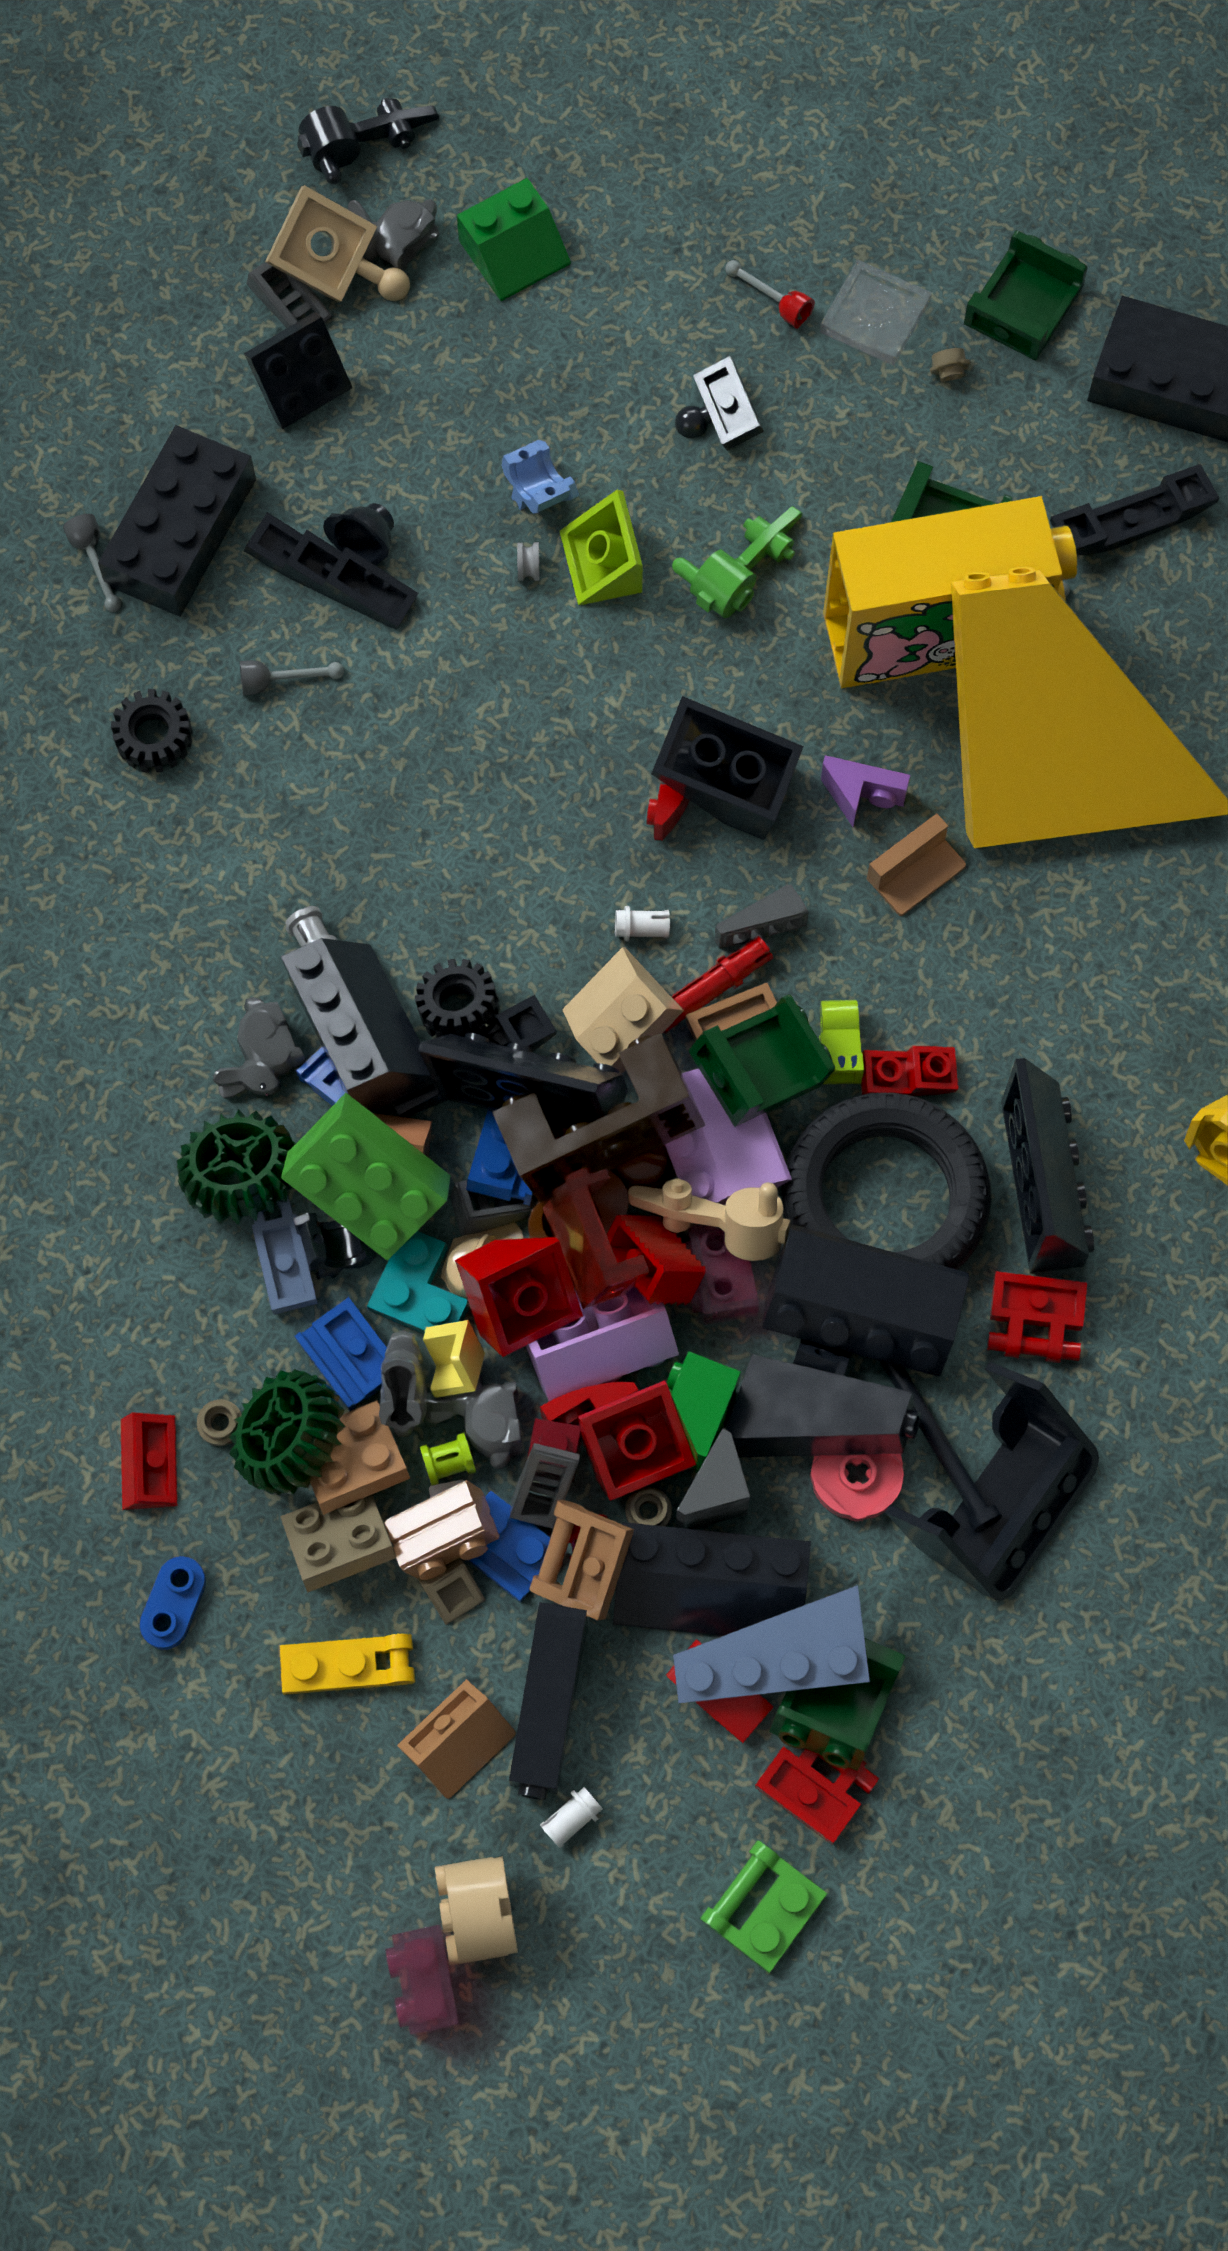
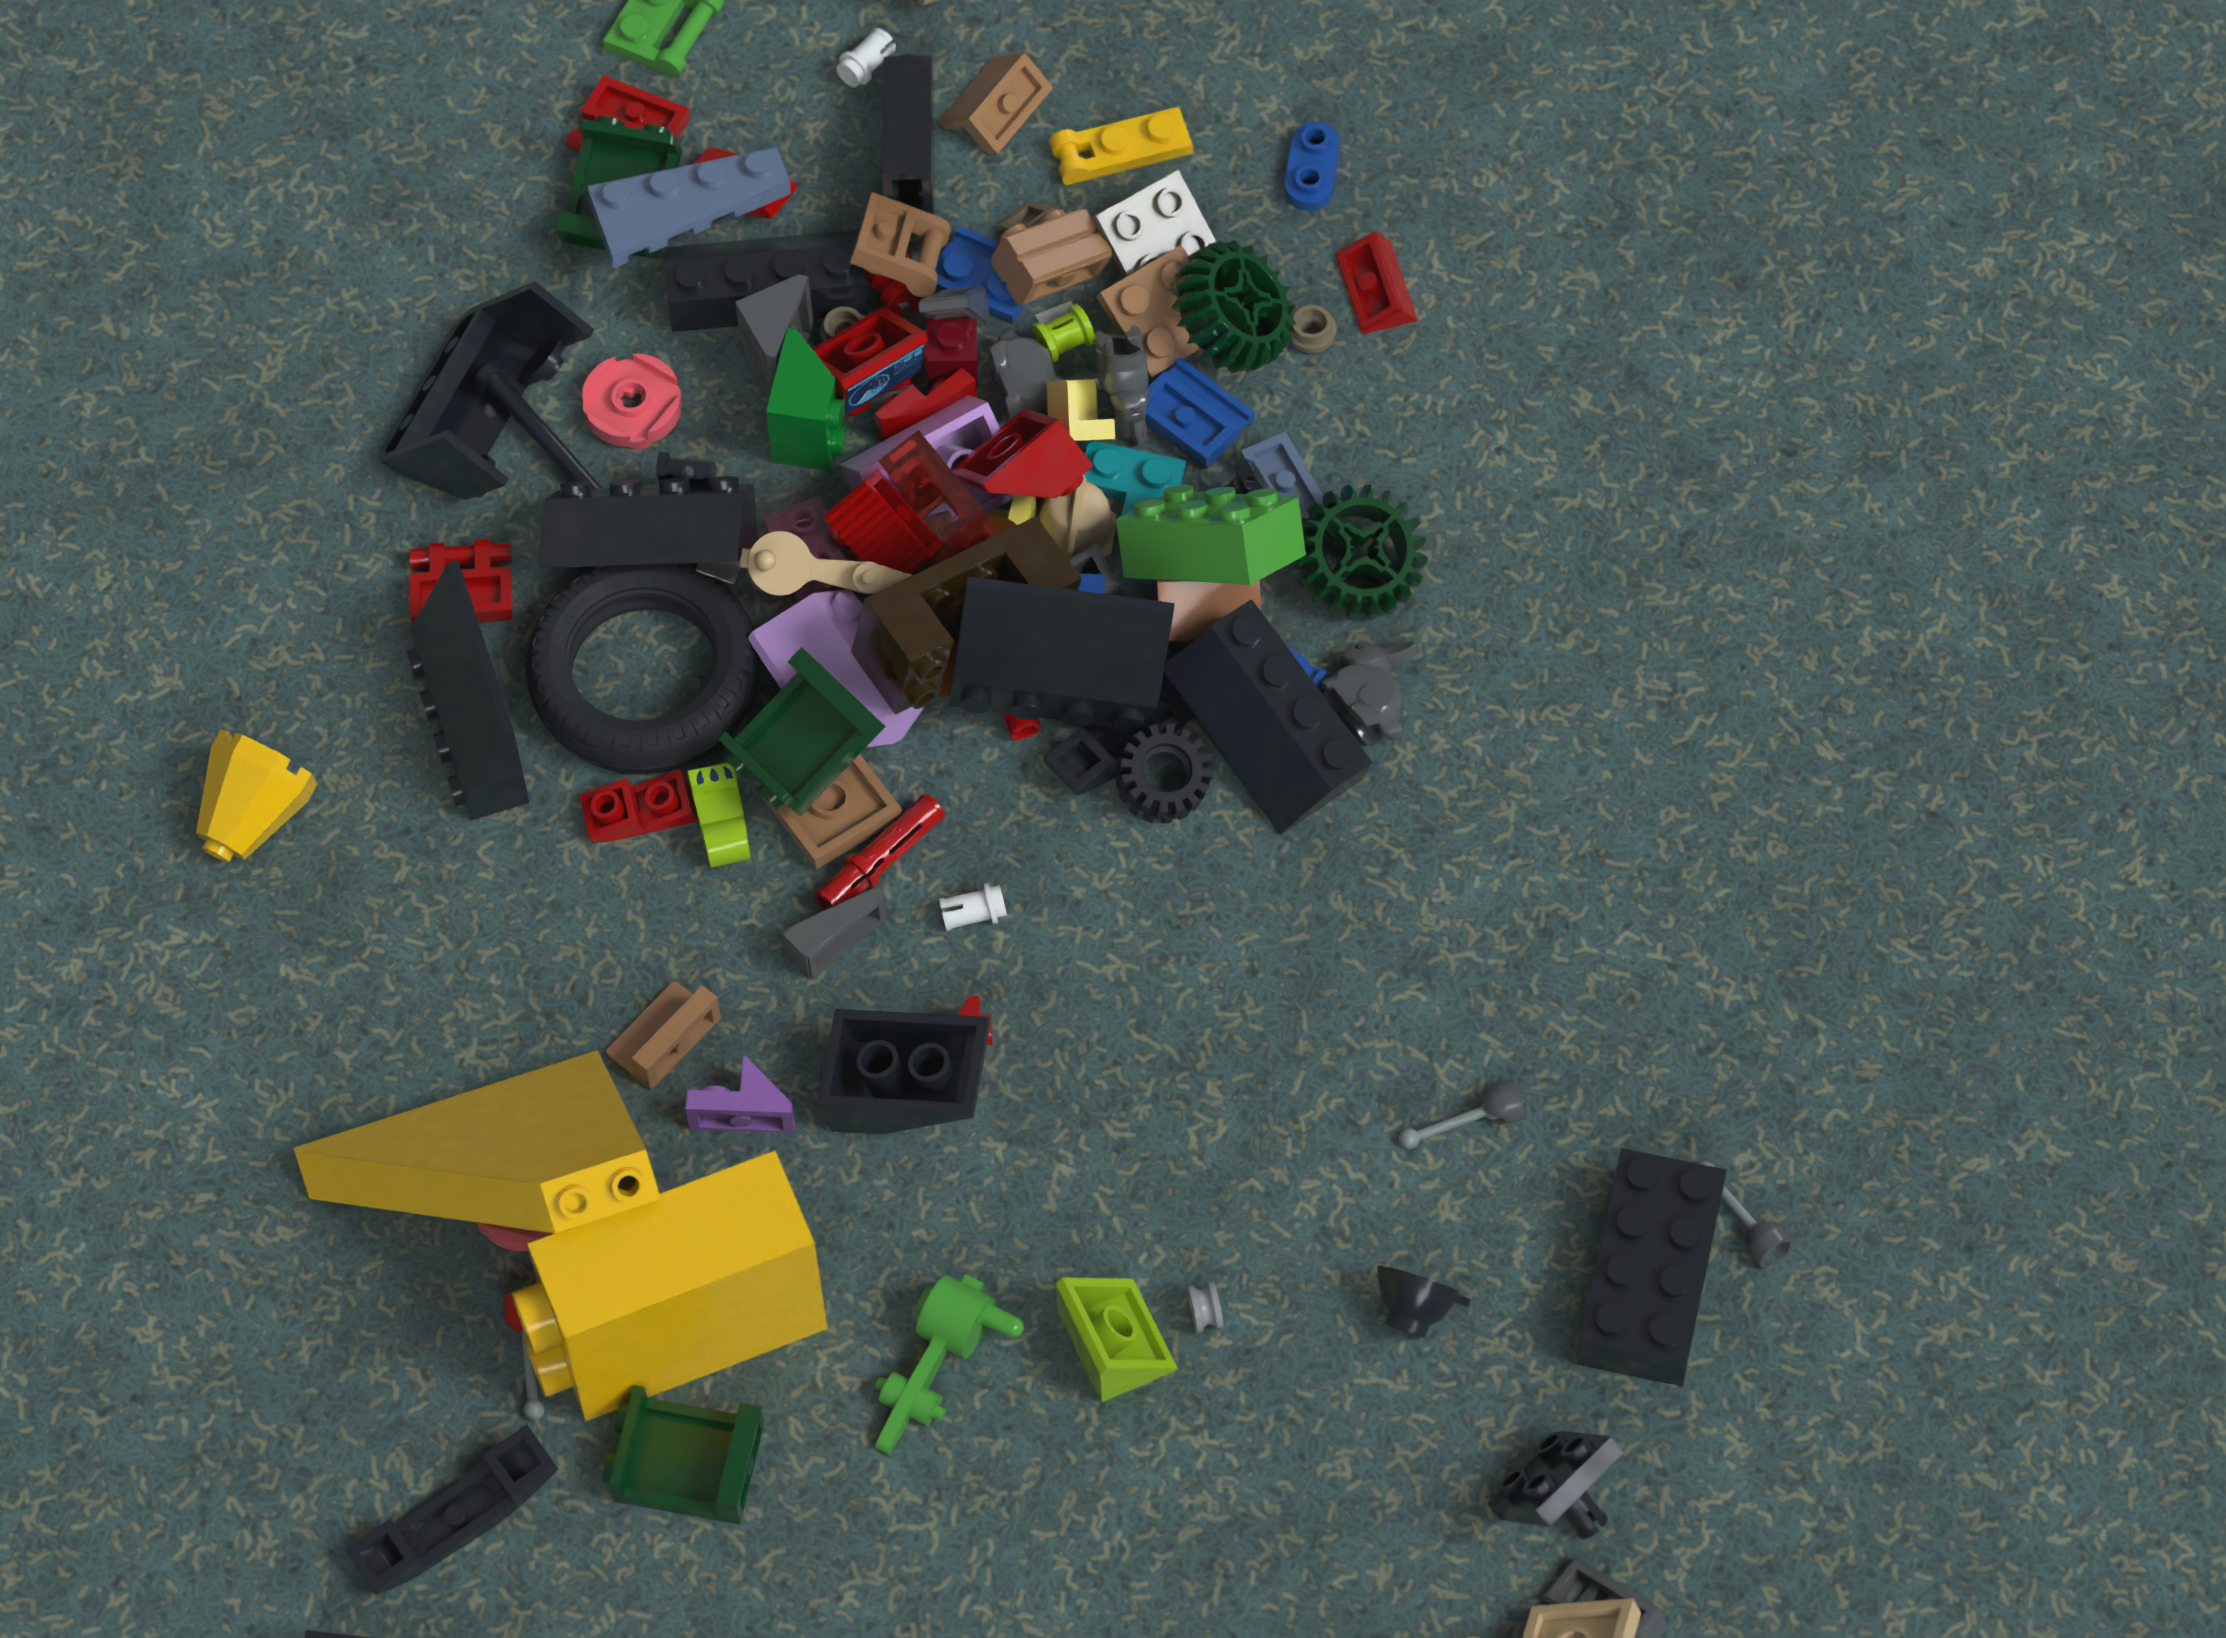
camera: 170 degrees right, 10 degrees down
(147, 708) = (1612, 988): black tyre -> none
(307, 926) = (1349, 818): light grey bush -> none
(330, 572) = (1447, 1252): black slope -> none
(535, 478) = (1213, 1406): medium blue piece -> none
(618, 1008) = (975, 785): tan slope -> none
(726, 407) = (1001, 1565): plate -> none
(817, 1413) = (687, 419): black slope -> none

